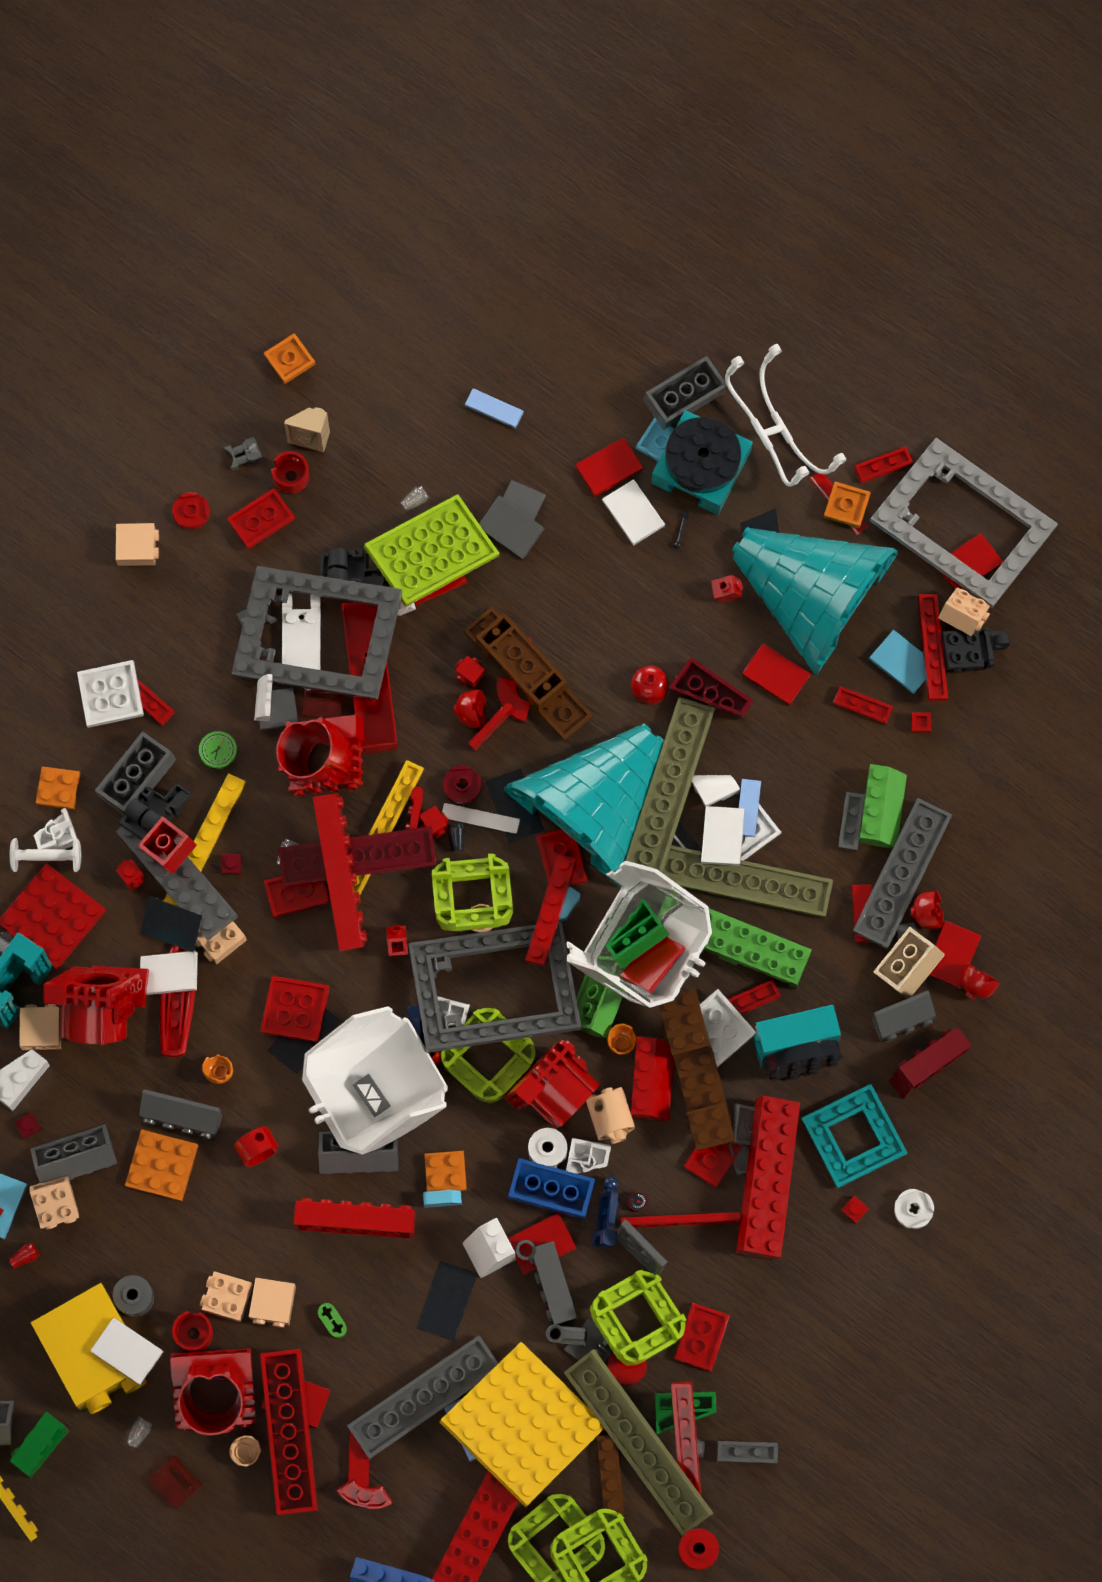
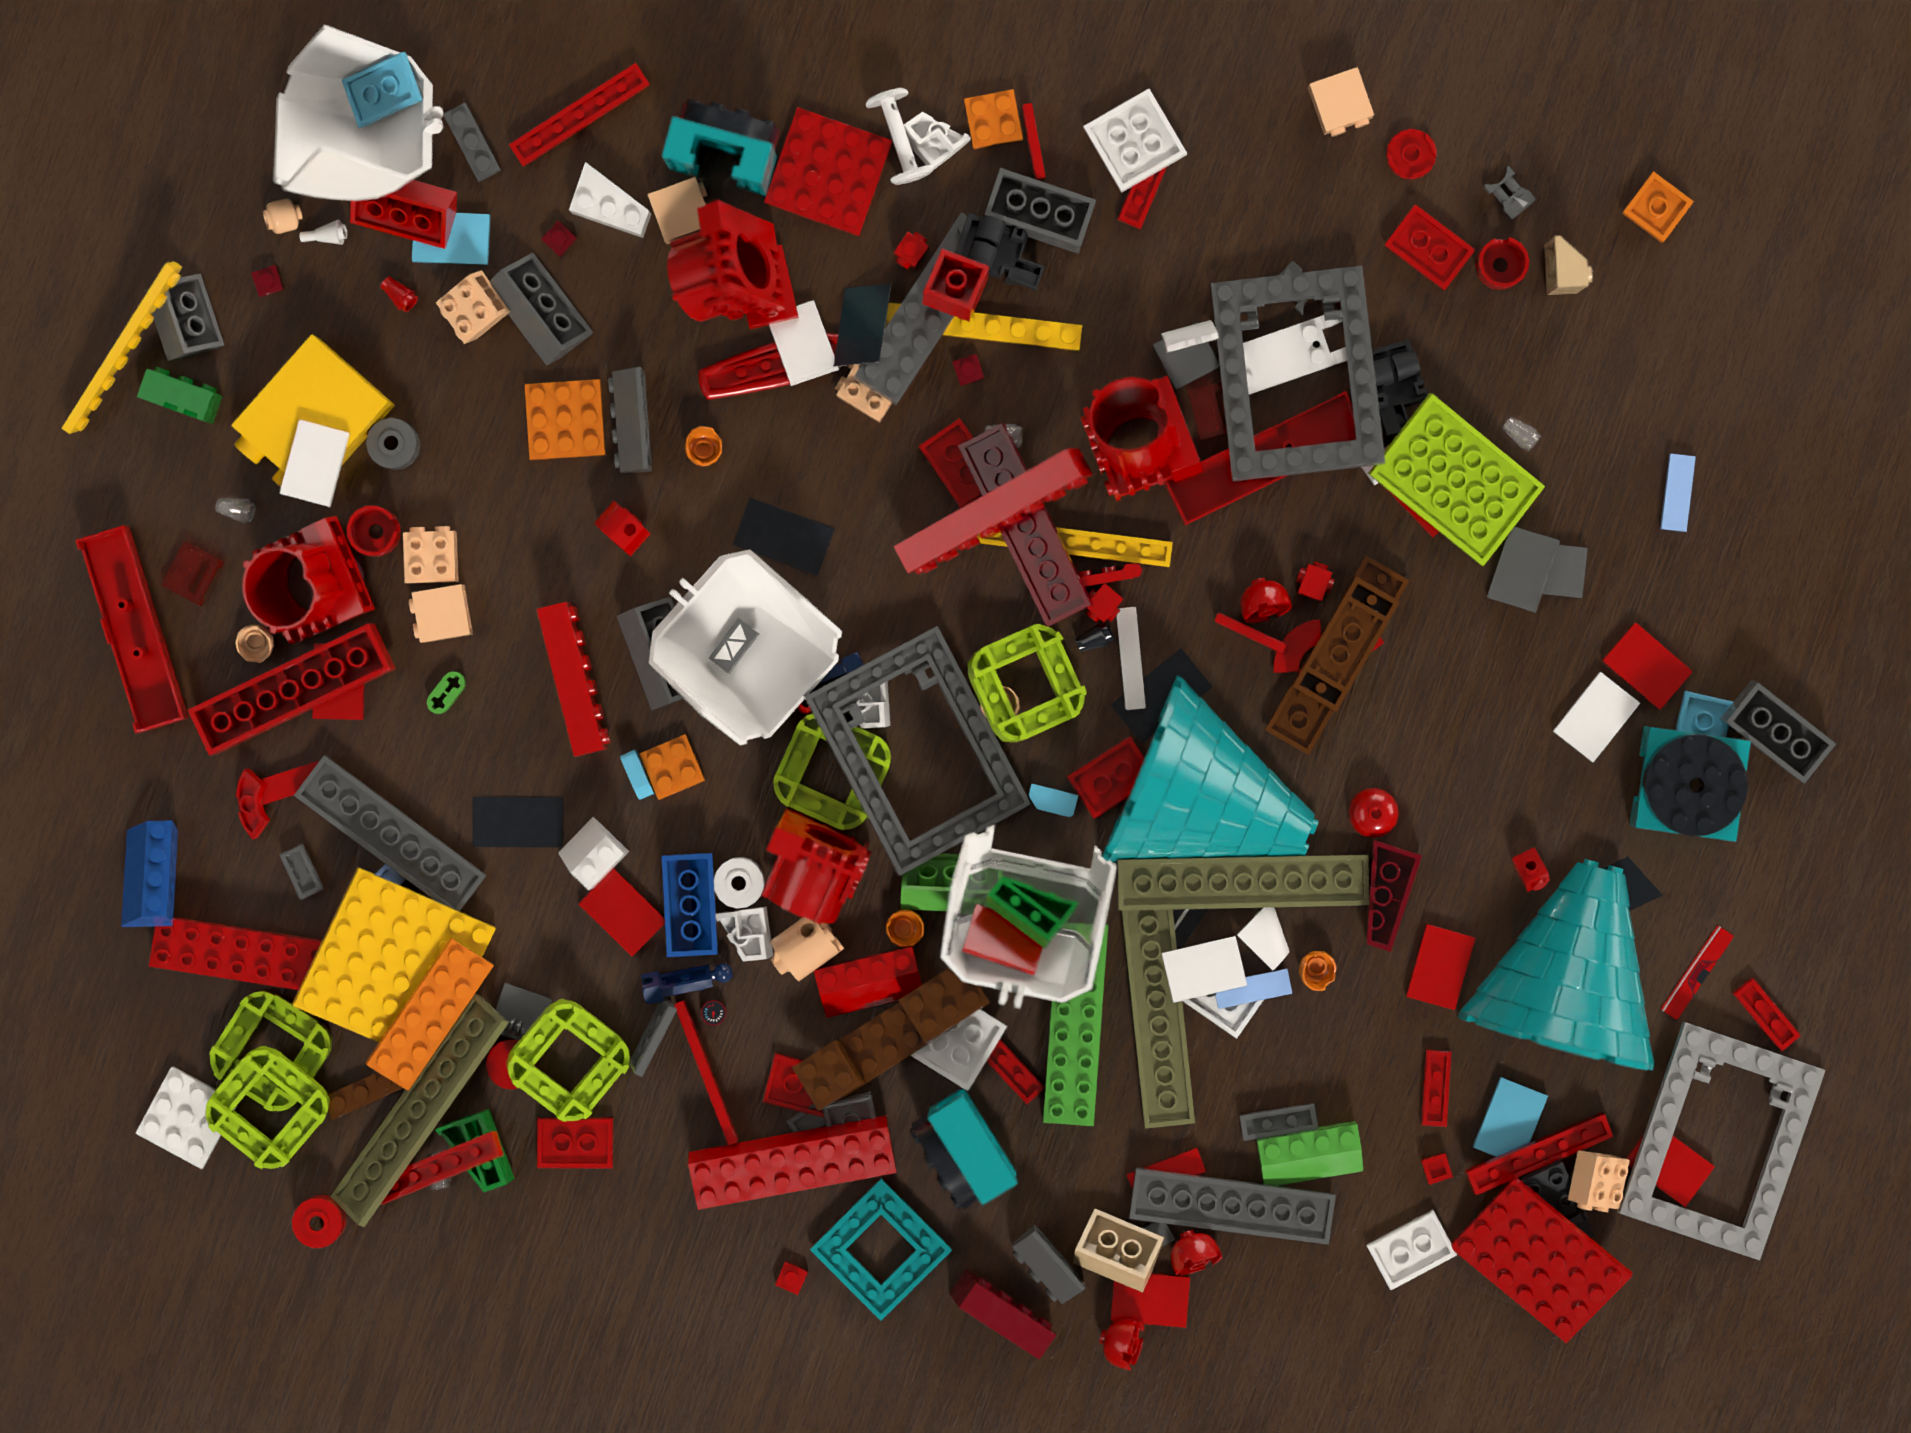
camera: 70 degrees right, 15 degrees up
(84, 764) = (1033, 142): none -> red tile
(201, 1540) = (133, 628): none -> red piece
(218, 750) = (1108, 301): bright green tile -> none
(295, 1009) = (810, 514): red plate -> none
(397, 940) = (936, 610): red brick -> none
(428, 1474) = (301, 871): none -> dark grey plate
(470, 777) = (1151, 616): dark red plate -> none
(551, 910) = (1037, 788): red plate -> none
(552, 1280) = (580, 941): dark grey hinge -> none
(568, 1335) = (520, 984): dark grey piece -> none
(568, 1409) = (429, 1014): none -> orange plate
(685, 516) = (1613, 784): black hinge -> none
(747, 1452) = (454, 1242): dark grey plate -> none
(749, 758) = (1317, 970): none -> orange hair
(780, 426) = (1772, 866): white bar -> none
(847, 504) = (1695, 985): orange plate -> none
(924, 1213) = (813, 1363): white plate -> none
(975, 759) = (1411, 1250): none -> white tile
(1009, 669) = (1541, 1259): none -> red plate

